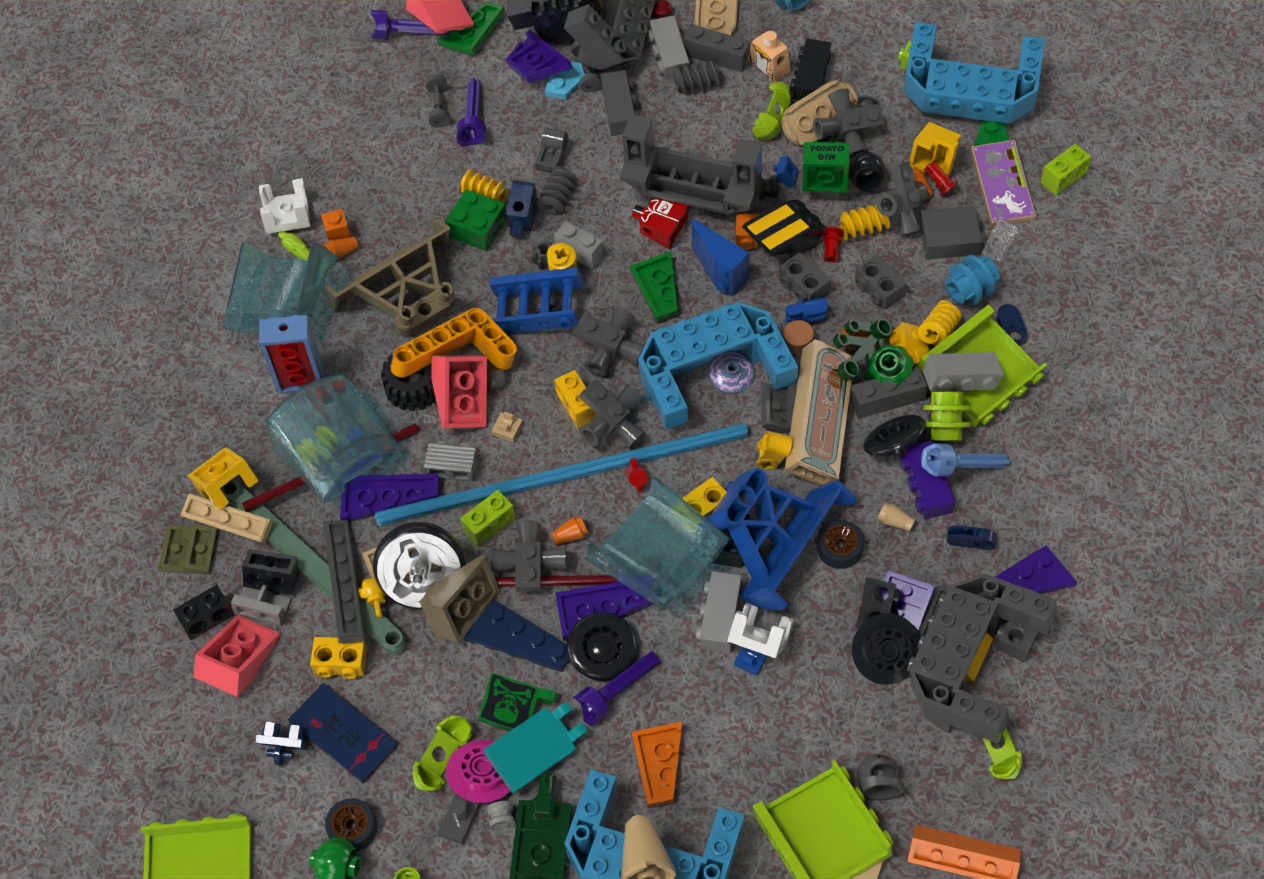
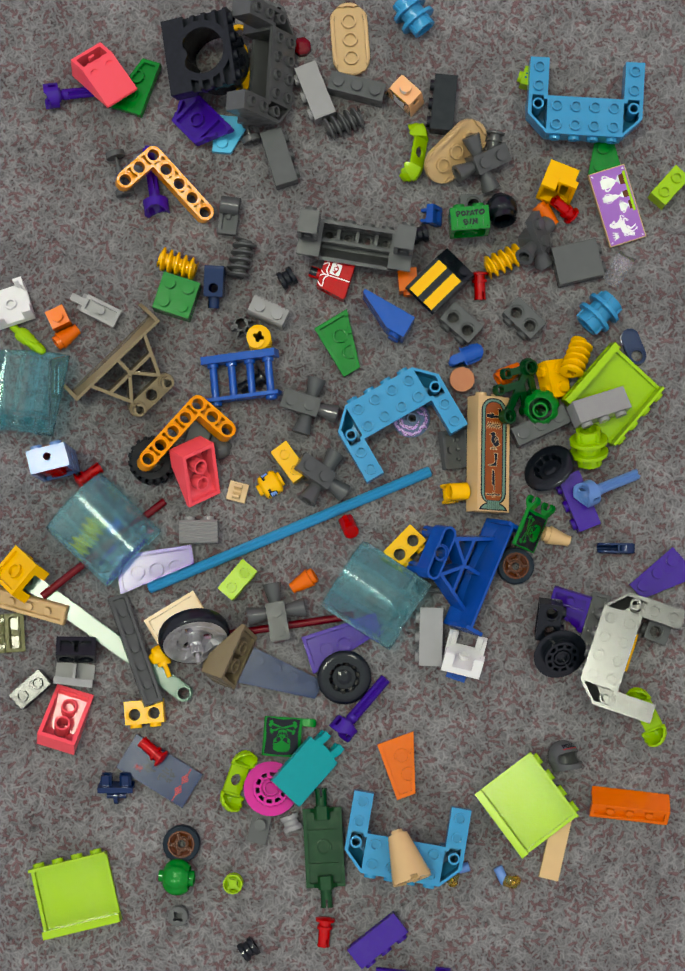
camera: 10 degrees left, 25 degrees up
(341, 704) = (153, 751): none -> red pin
(382, 224) = (97, 309): none -> light grey hinge
(496, 108) = (168, 180): none -> light orange beam
(548, 421) = (270, 484): none -> yellow head
(606, 215) = (286, 278): none -> black wheel
(864, 496) = (532, 524): none -> green flag

